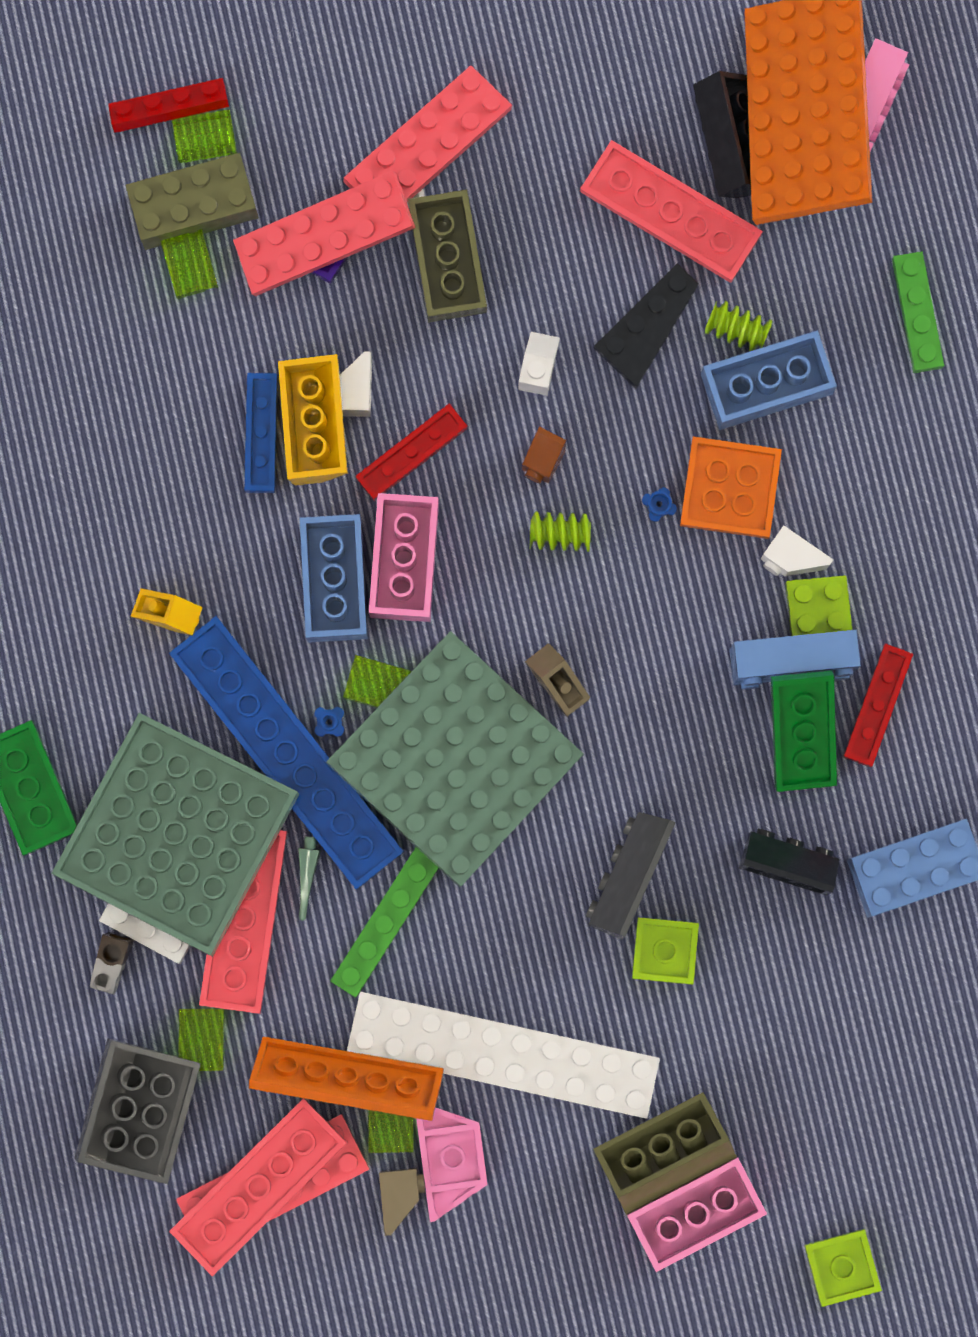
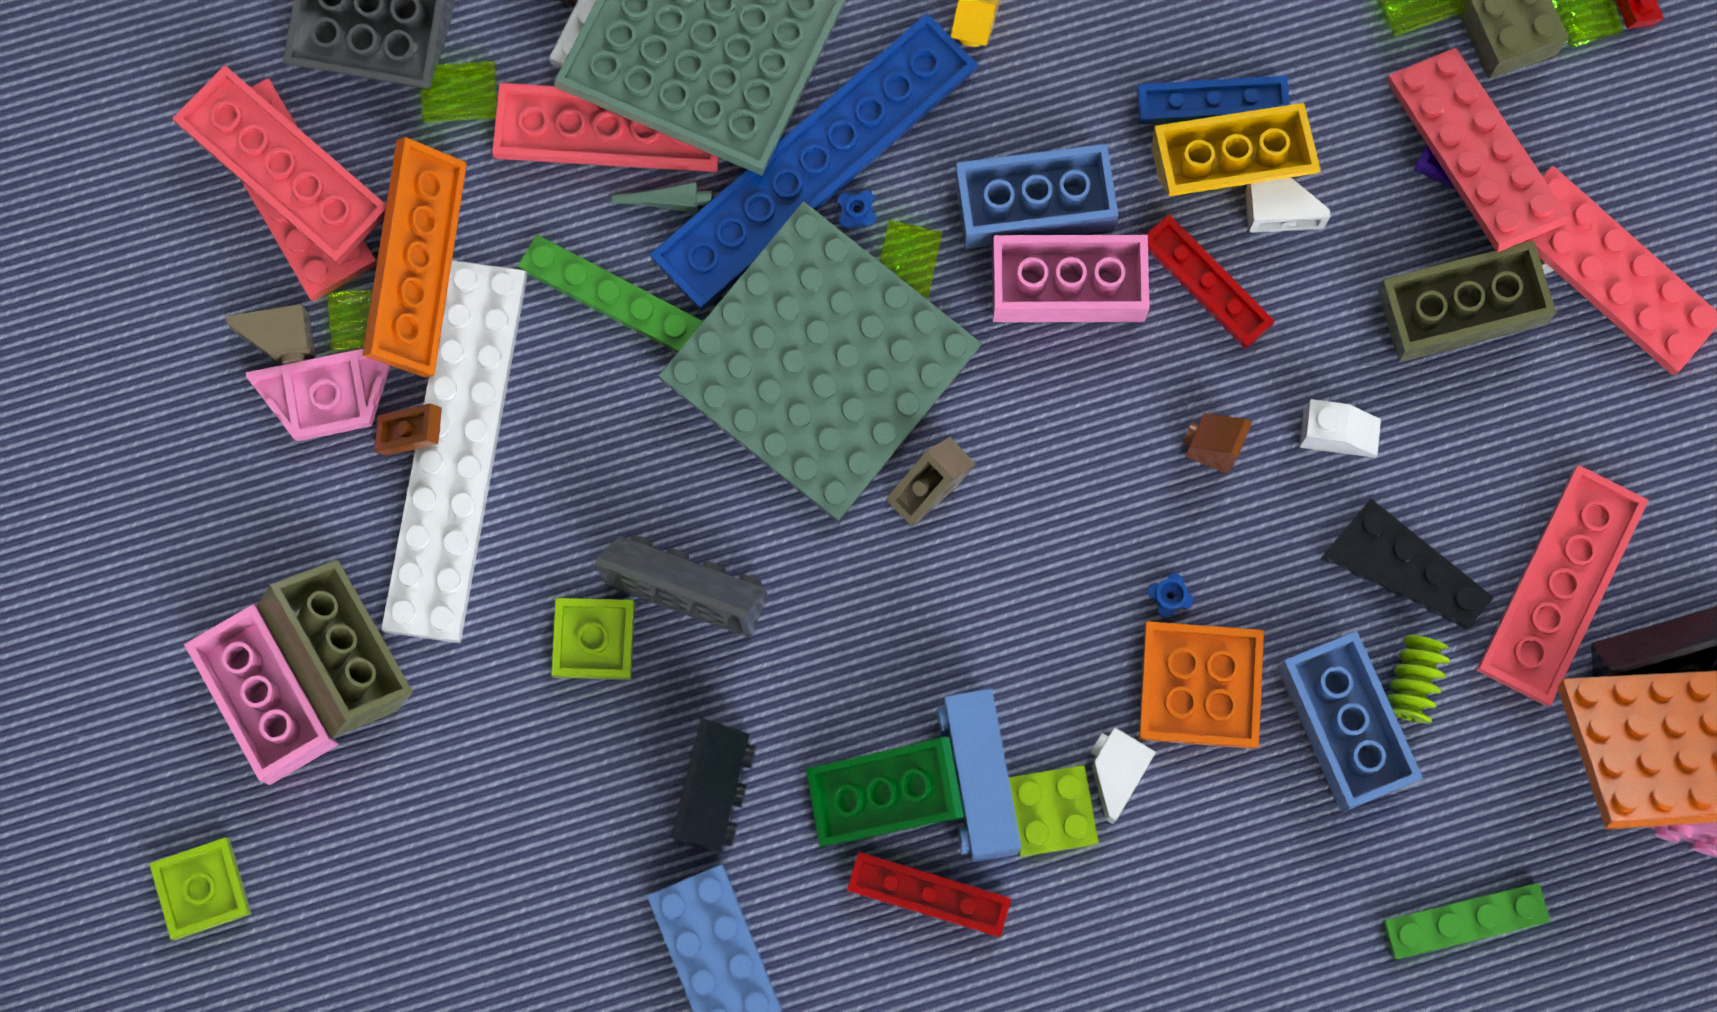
camera: 85 degrees right, 5 degrees down
(489, 1090) = (408, 429): none -> dark orange plate
(560, 531) = (1120, 470): lime piece -> none

